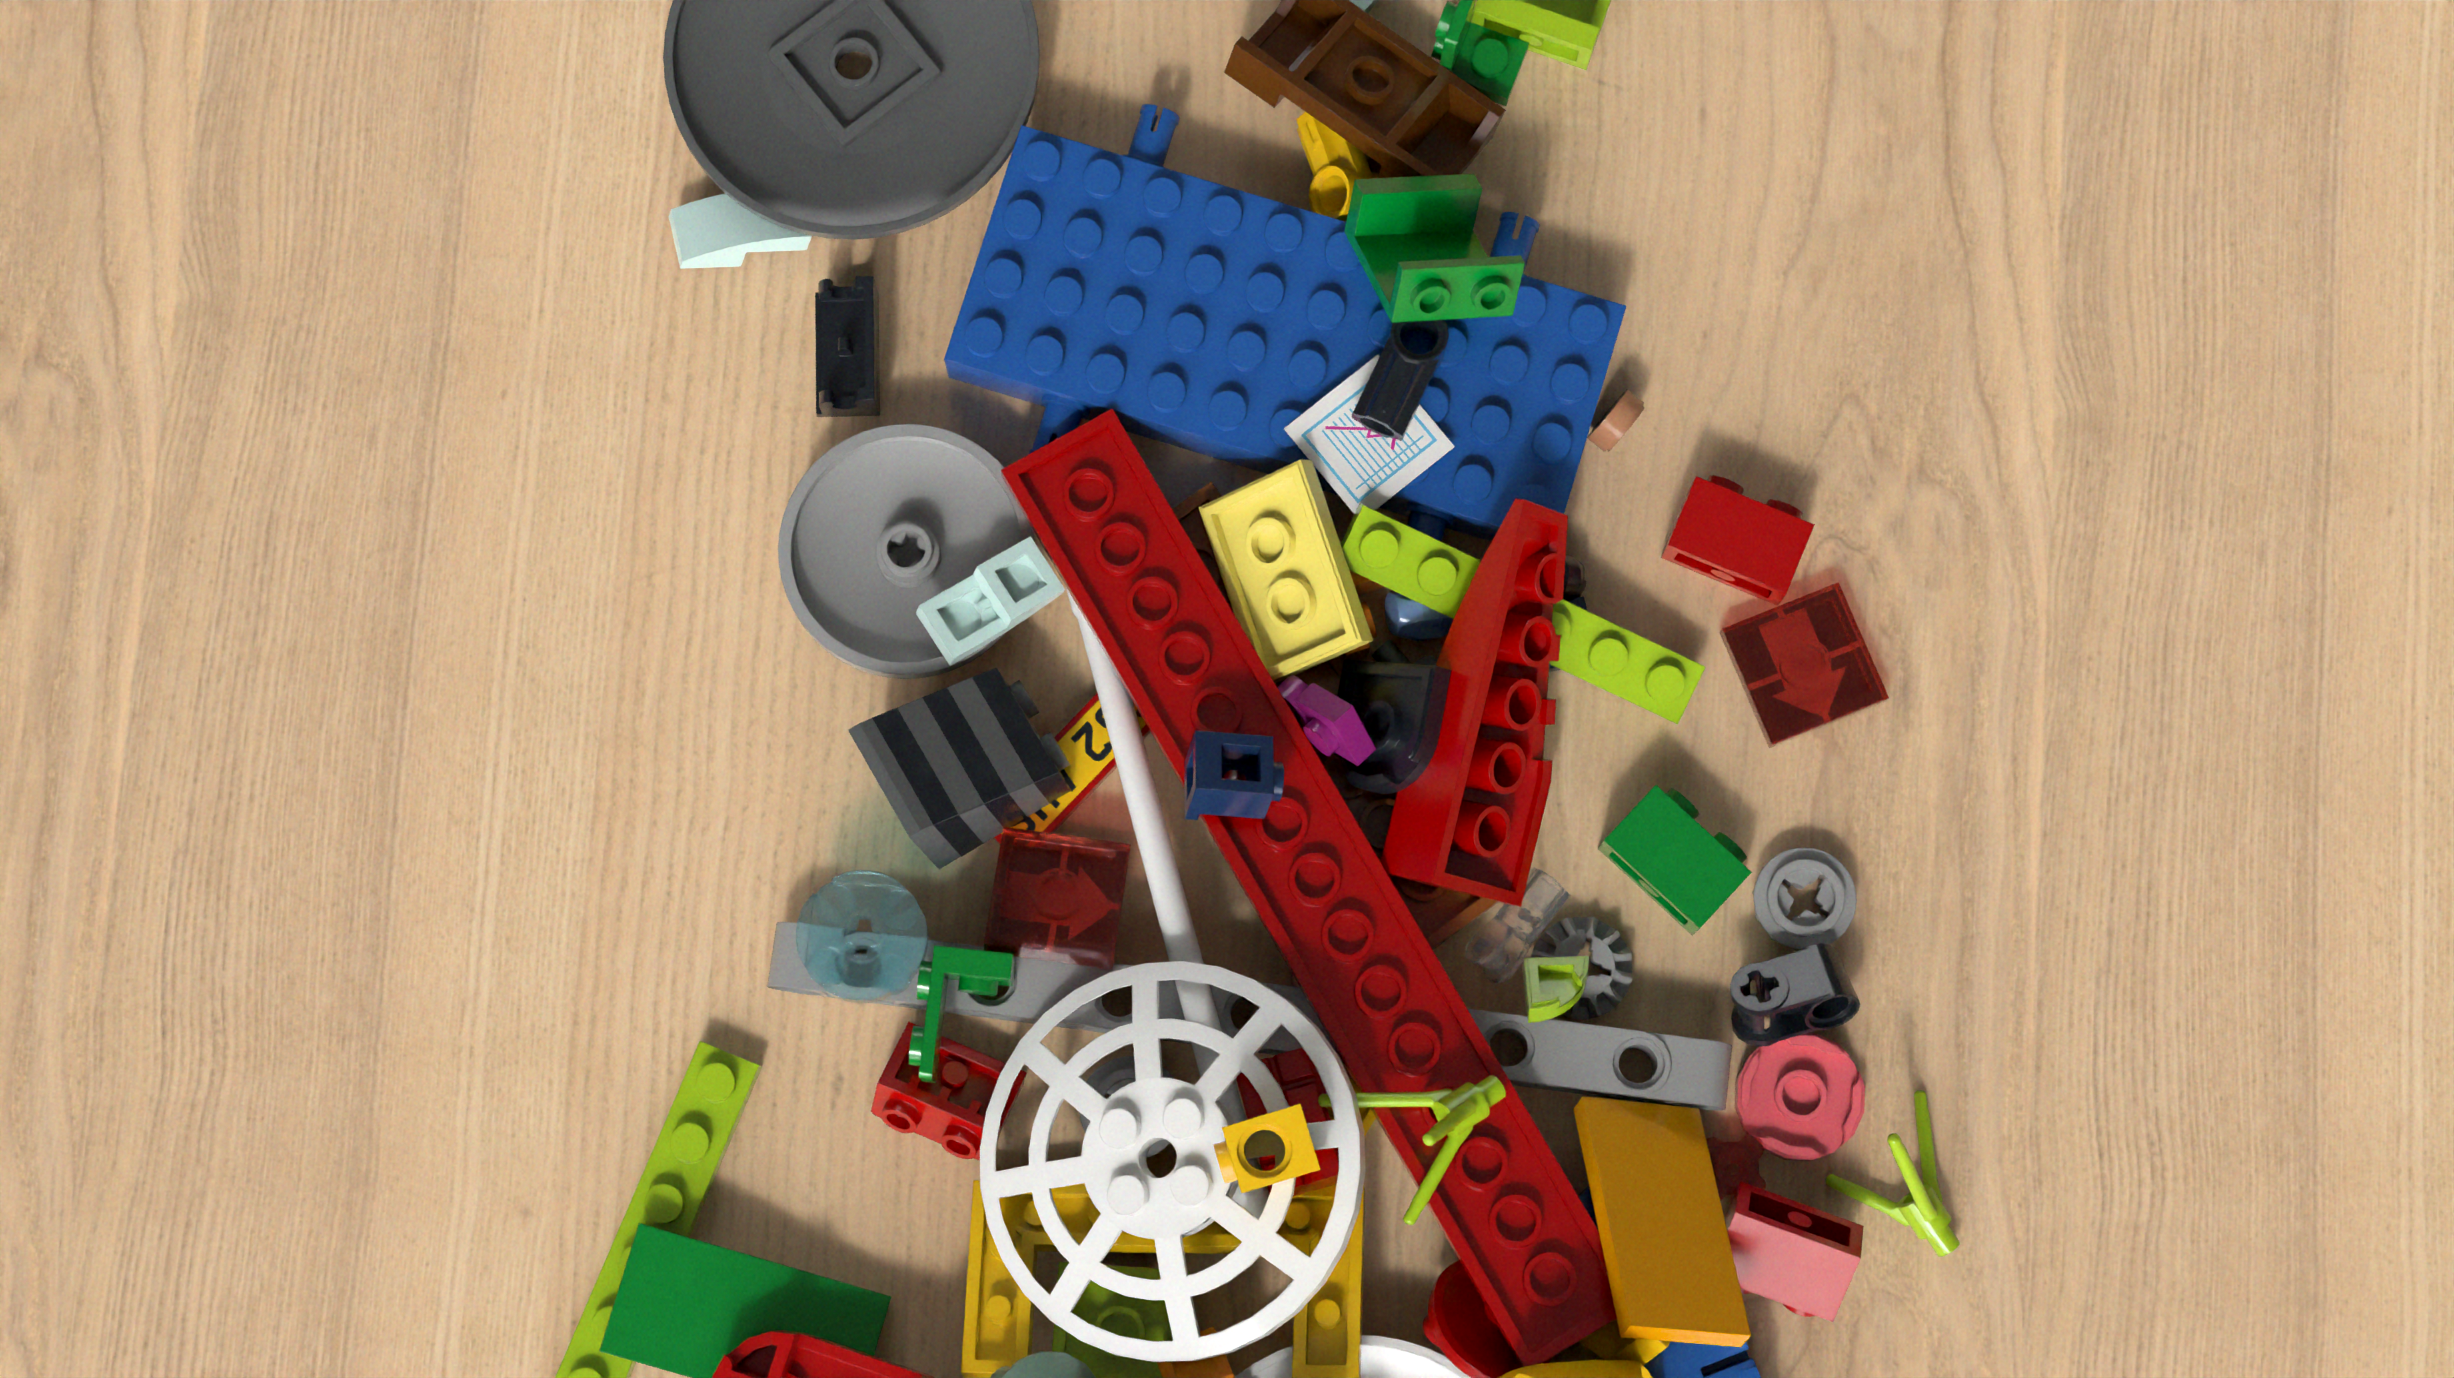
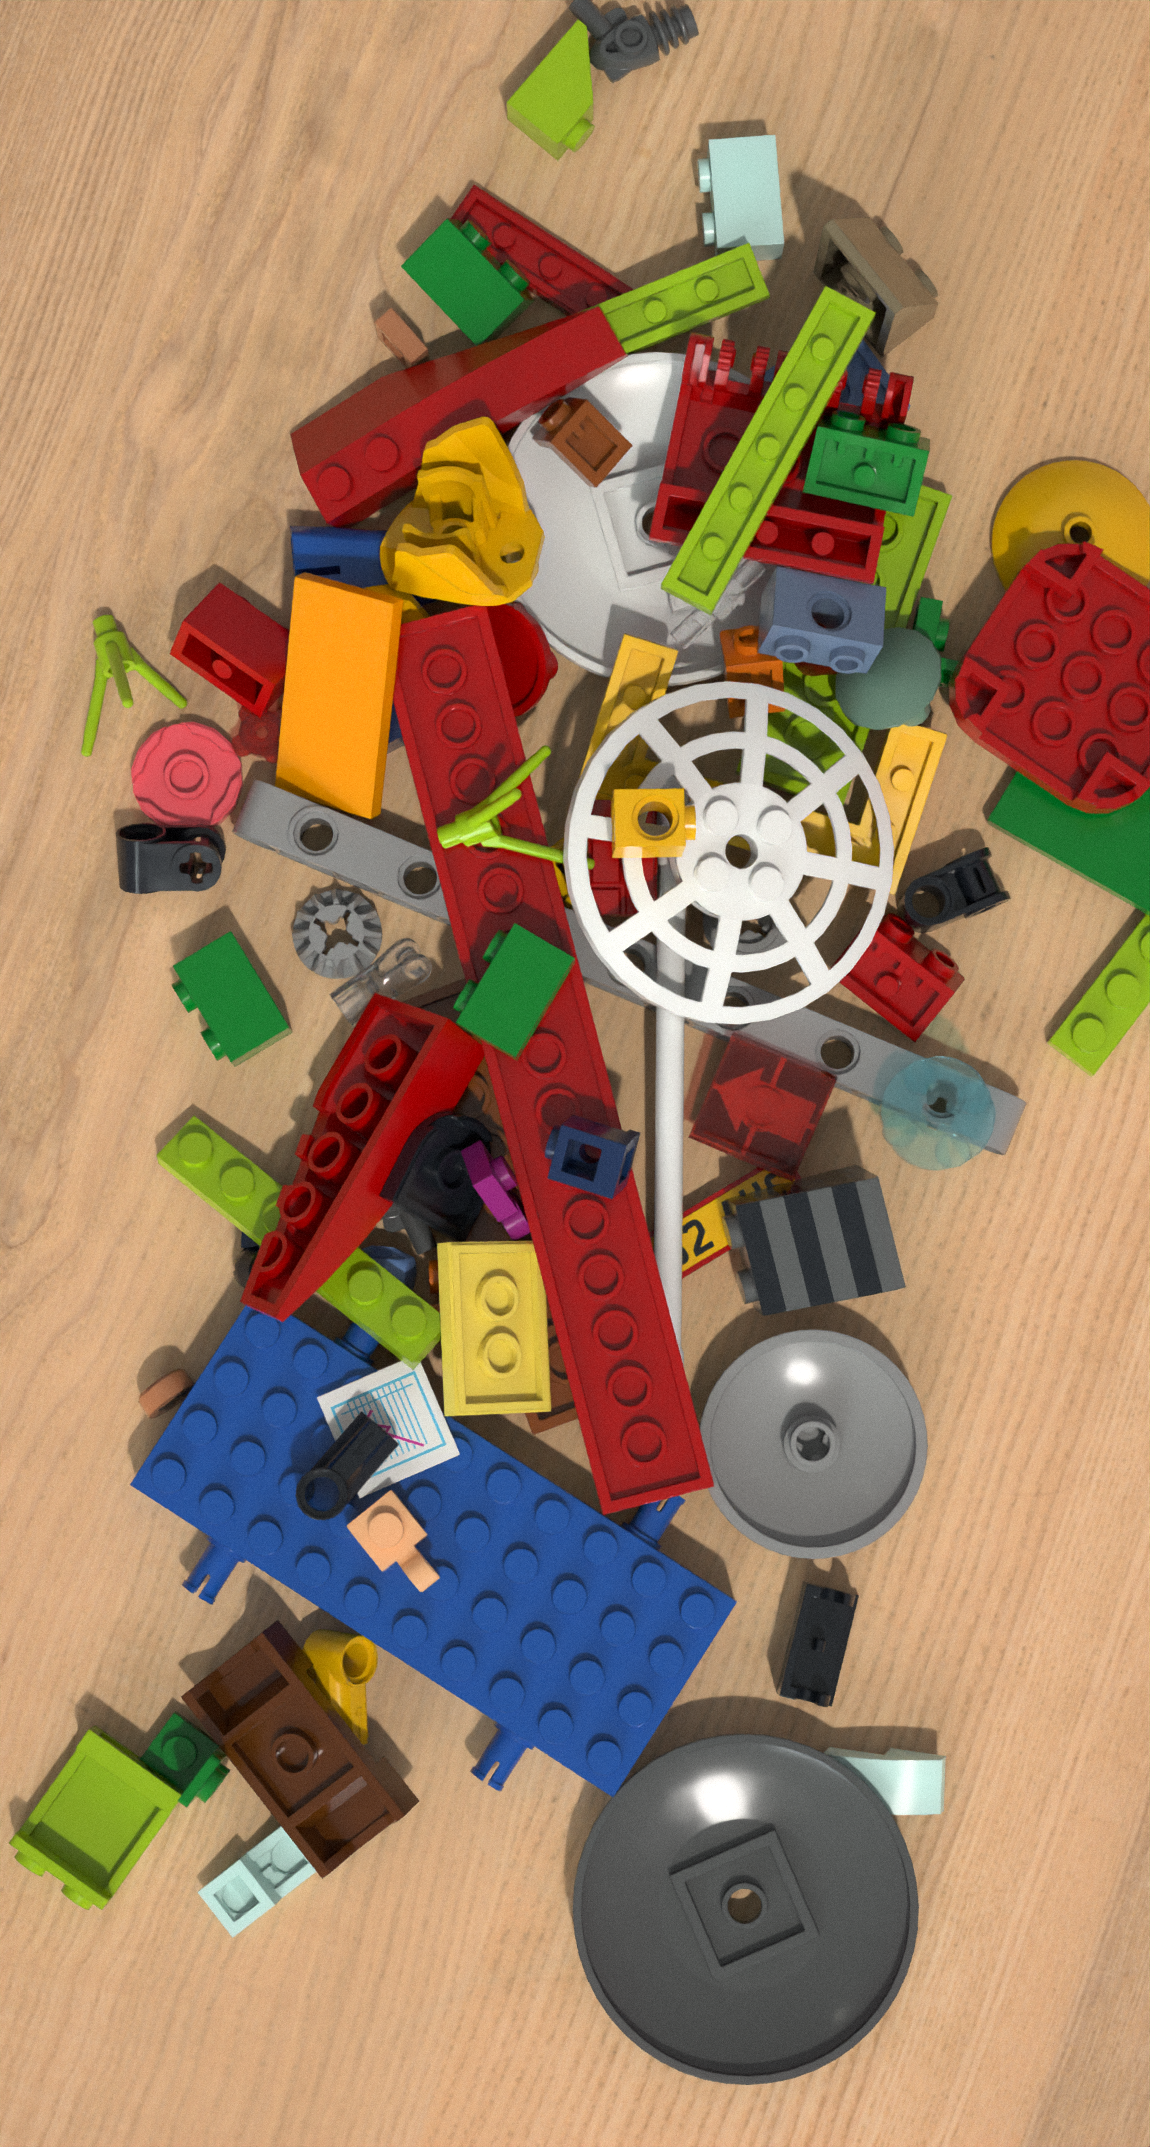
camera: 165 degrees left, 5 degrees up
(905, 1204) = (962, 890): none -> black piece
(977, 973) = (848, 1054): green bracket -> none
(990, 601) = (753, 1374): light aqua slope -> none
(1331, 323) = (391, 1536): none -> light nougat plate
(1368, 933) = (513, 991): none -> green brick
(1423, 249) = (291, 1570): green panel -> none
(1553, 985) = (367, 918): lime tile -> none
(1738, 538) = (92, 1259): red brick -> none
(1799, 868) = (106, 935): light grey gear -> none
(1804, 665) = (70, 1138): clear red tile -> none

